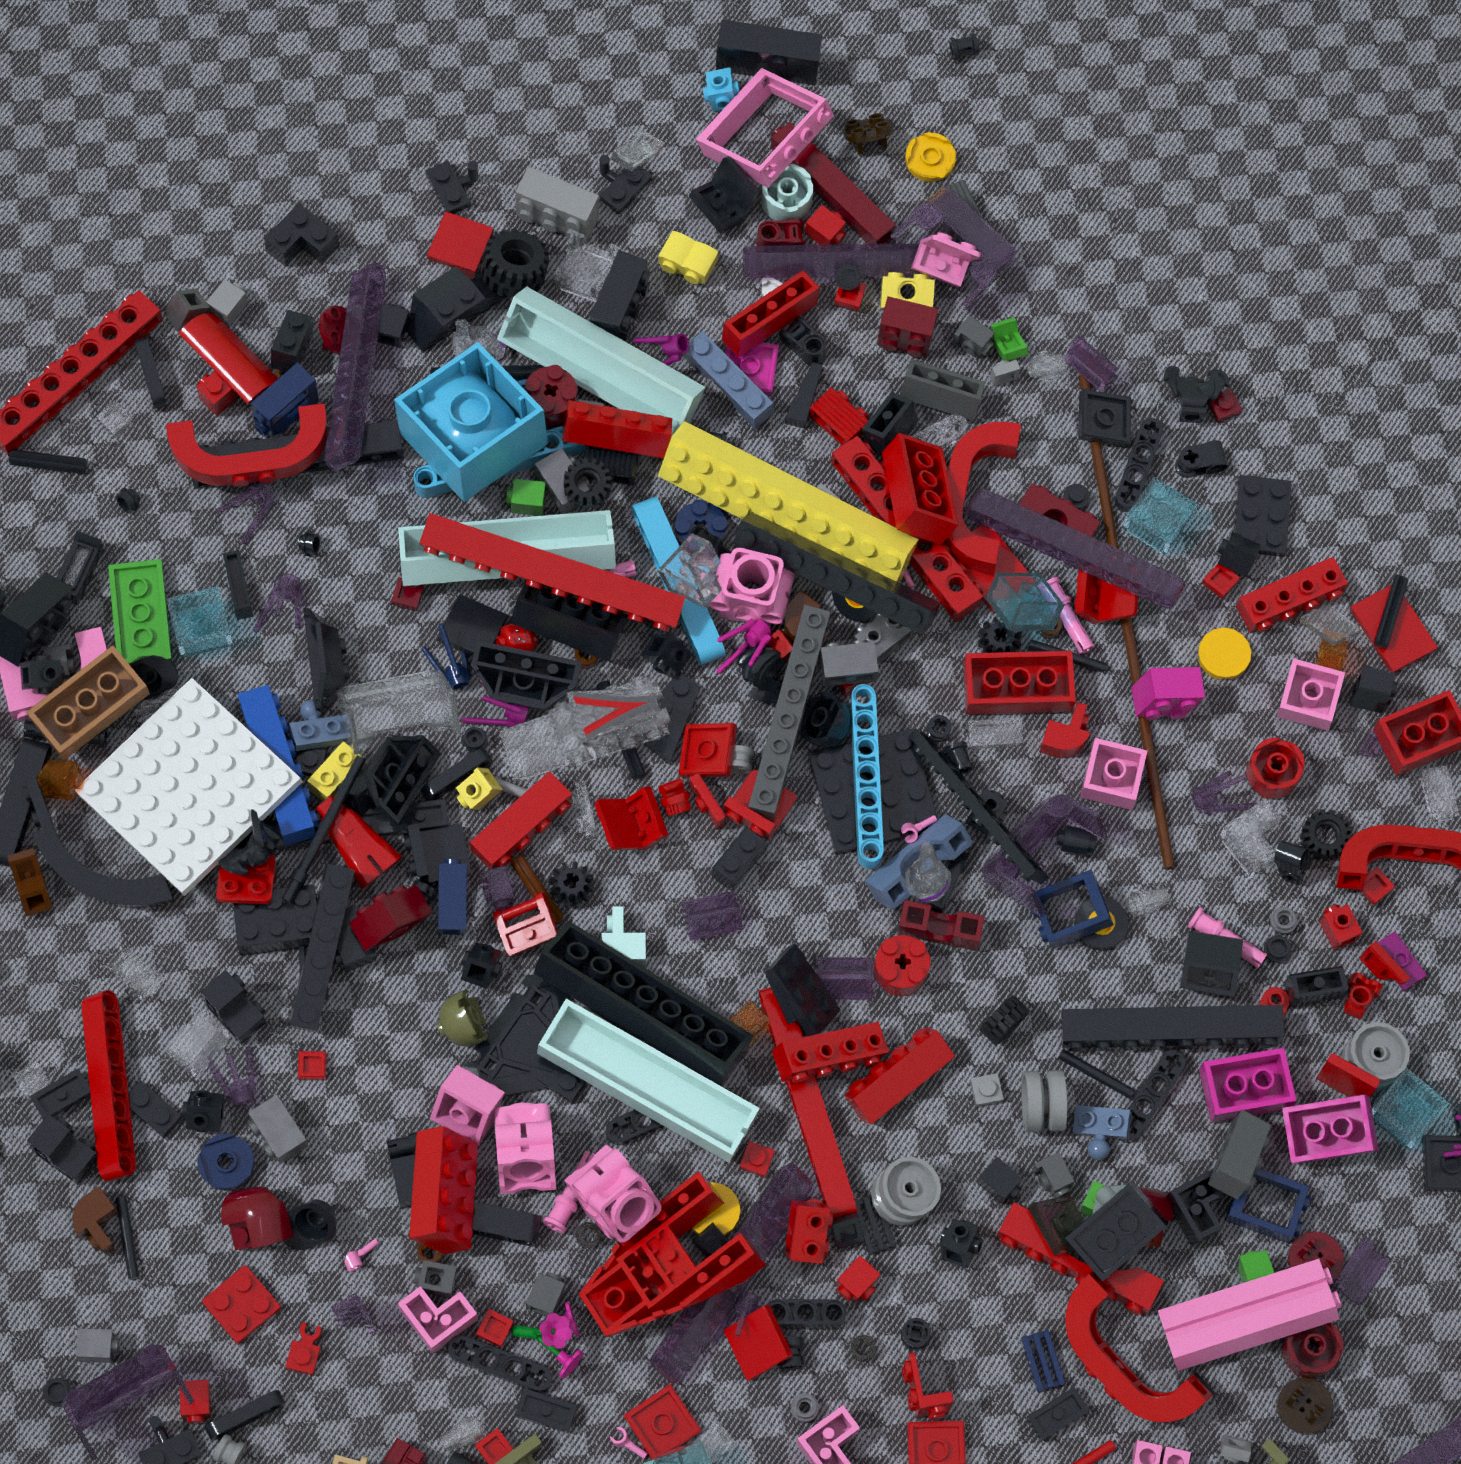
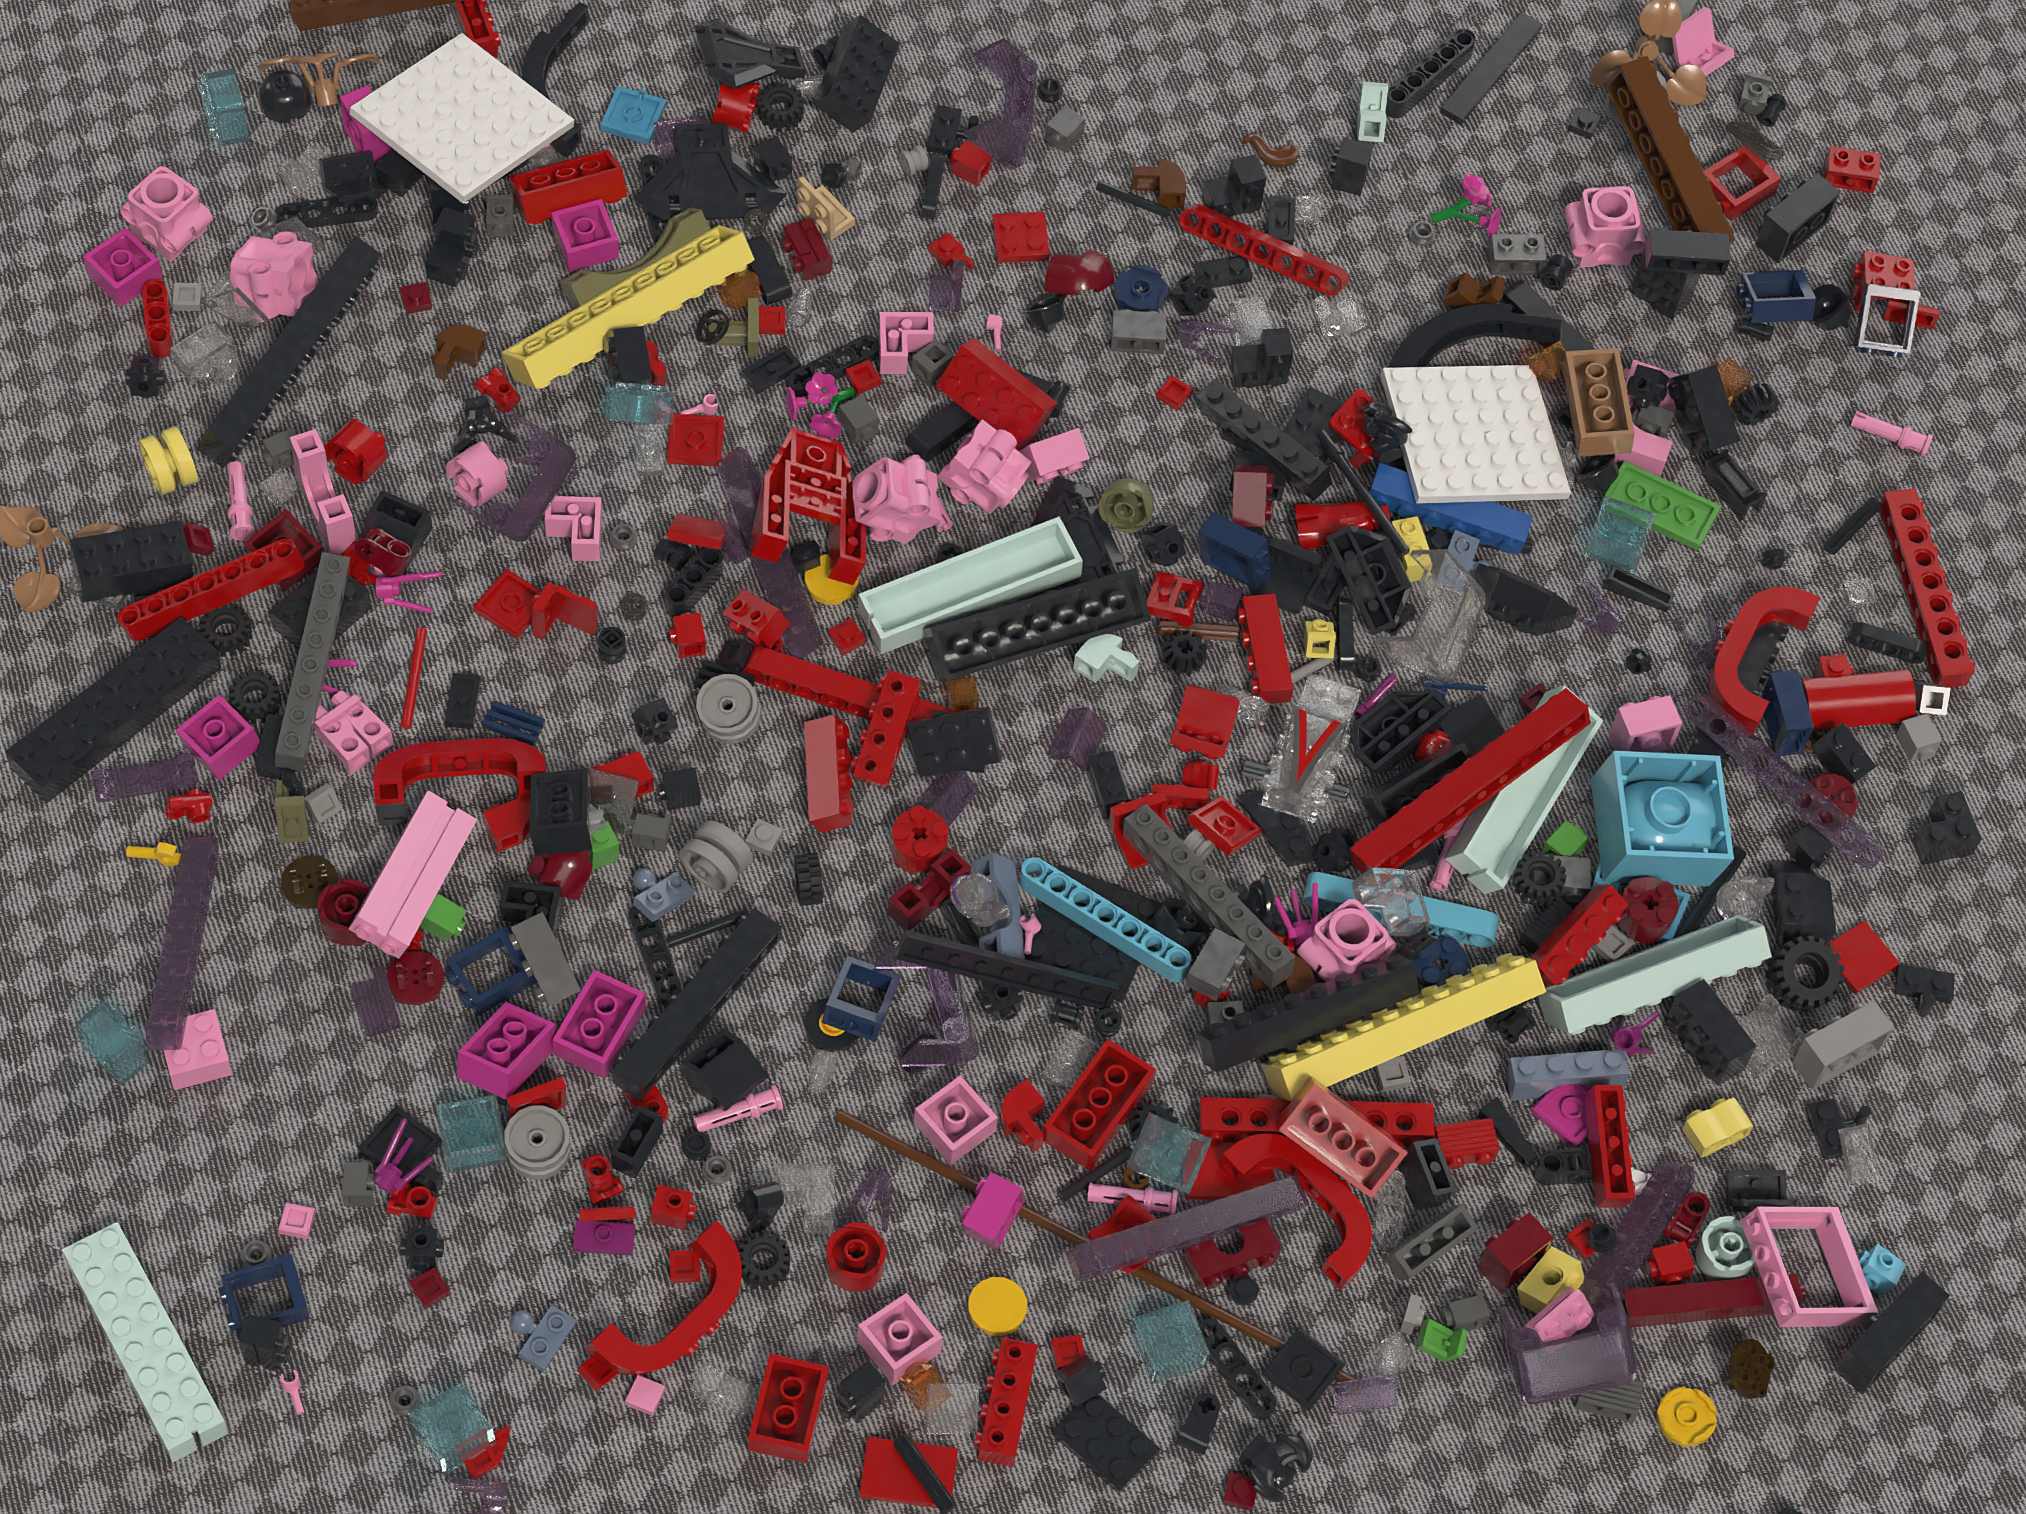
camera: 125 degrees right, 10 degrees down
(380, 495) = (1646, 726): none -> bright pink brick

